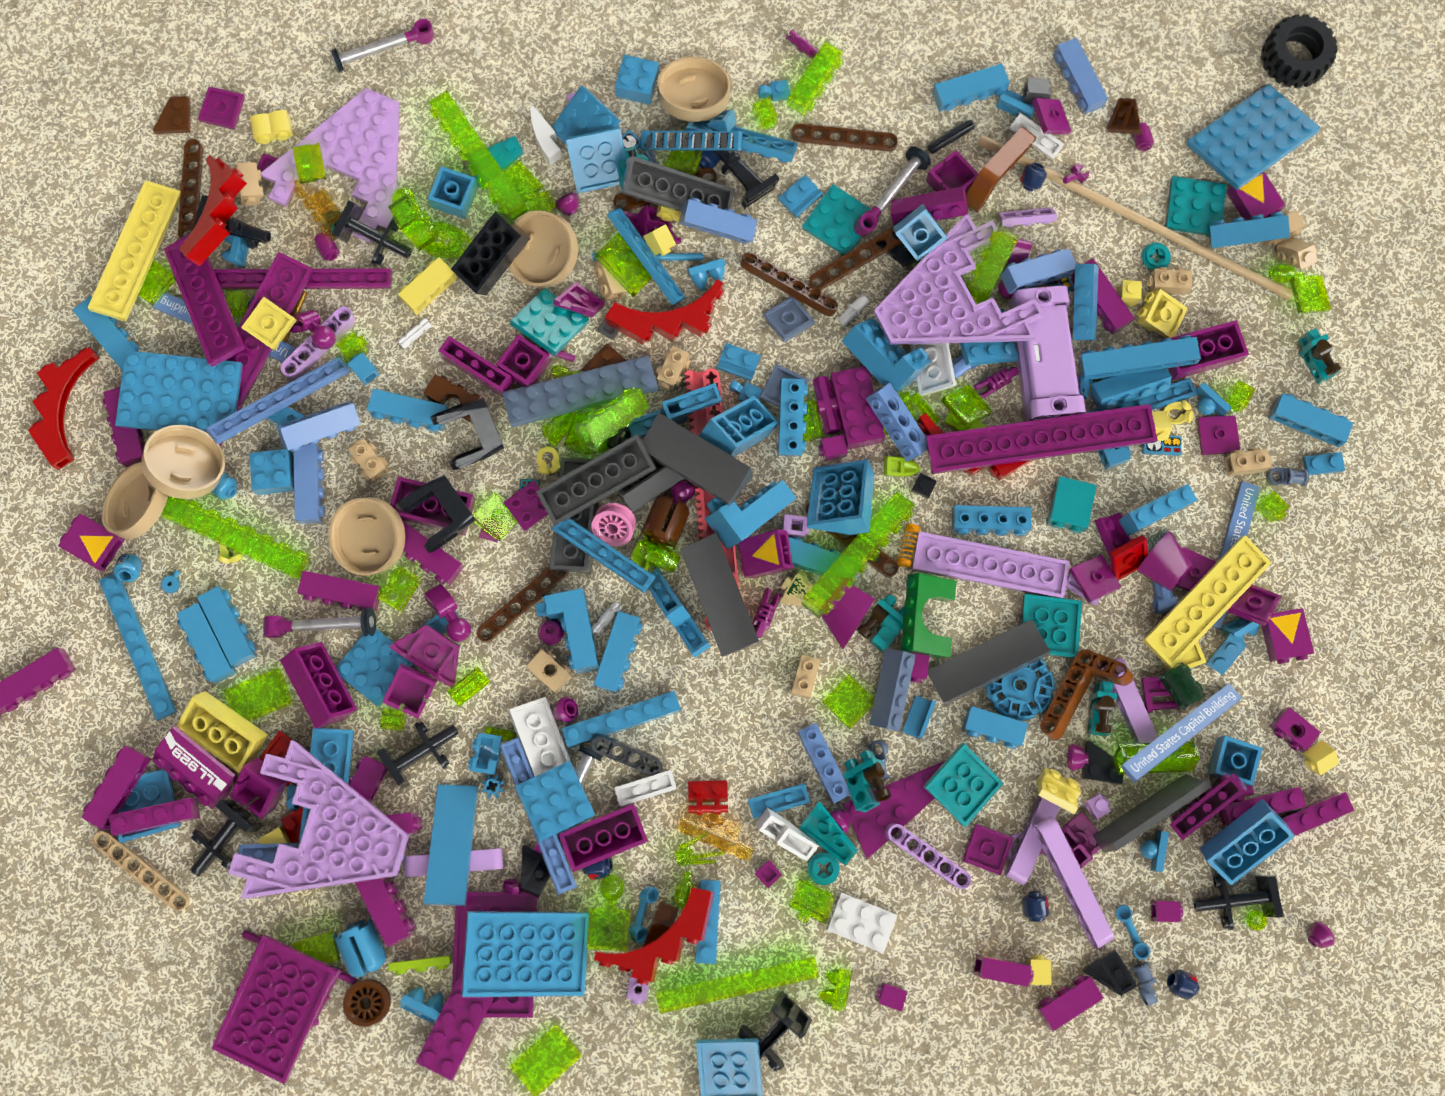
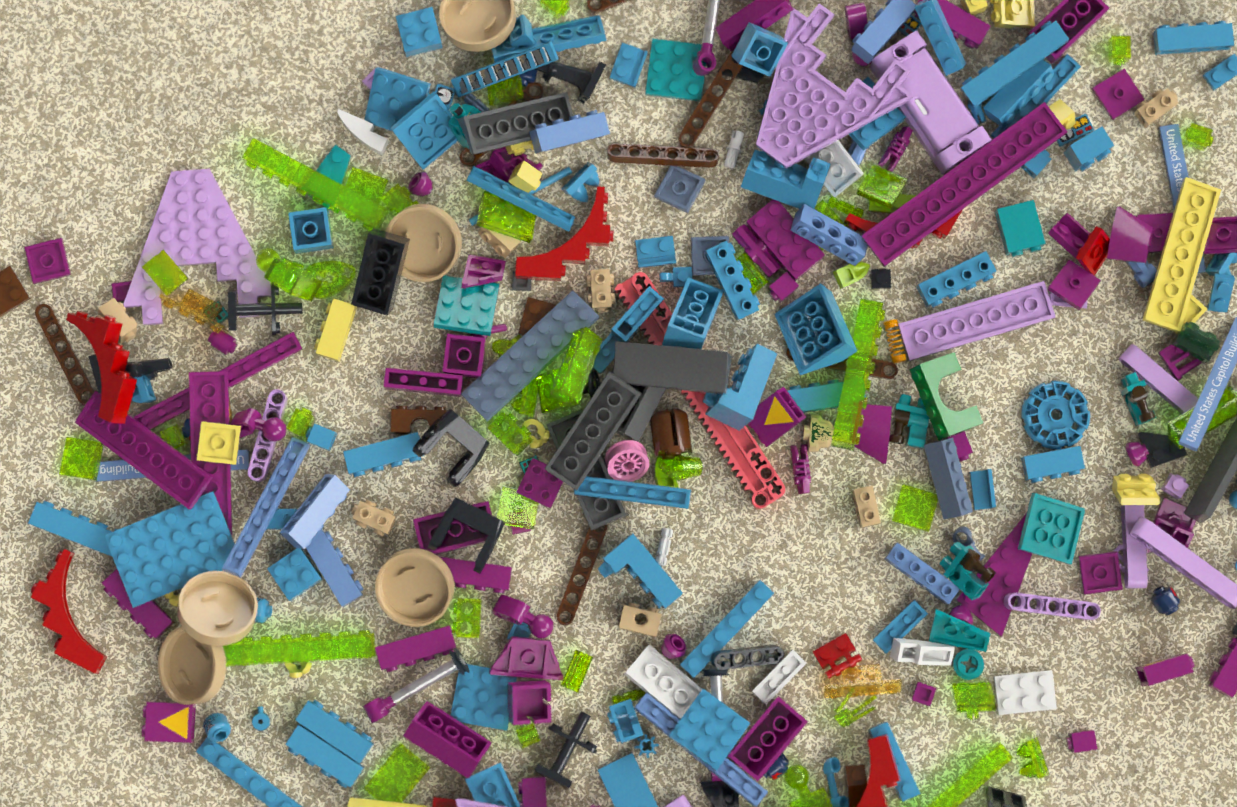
camera: 25 degrees left, 5 degrees up
(135, 251) = (52, 438): light yellow plate -> none
(271, 126) = (105, 255): light yellow brick -> none
(385, 44) = (166, 119): piece -> none
(414, 333) = (348, 379): white axle -> none
(523, 450) = (507, 437): none -> clear neon green brick
(554, 636) = (615, 582): magenta cone -> none
(617, 652) = (690, 571): dark azure brick -> none
(678, 614) = (727, 511): dark azure bracket -> none
(682, 491) = (670, 399): magenta cone -> none
(683, 890) = (859, 747): clear neon green plant -> none
(719, 595) = (754, 475): dark grey arch -> none
(792, 520) = (791, 370): lavender brick -> none
(988, 662) = (1018, 410): dark grey arch -> none
(992, 264) = (839, 46): clear neon green brick -> none
(1041, 969) = (1197, 651): light yellow brick -> none
(1056, 621) = (1056, 348): teal plate -> none
(1079, 687) = (1108, 391): dark orange beam -> none
(1158, 509) = (1098, 194): dark azure brick -> none
(1168, 466) = (1088, 149): none -> dark azure brick
(1183, 405) = (1074, 82): light yellow piece -> none
(1211, 401) = (1096, 67): dark azure tile -> none
(1288, 476) = (1198, 101): sand blue connector -> none

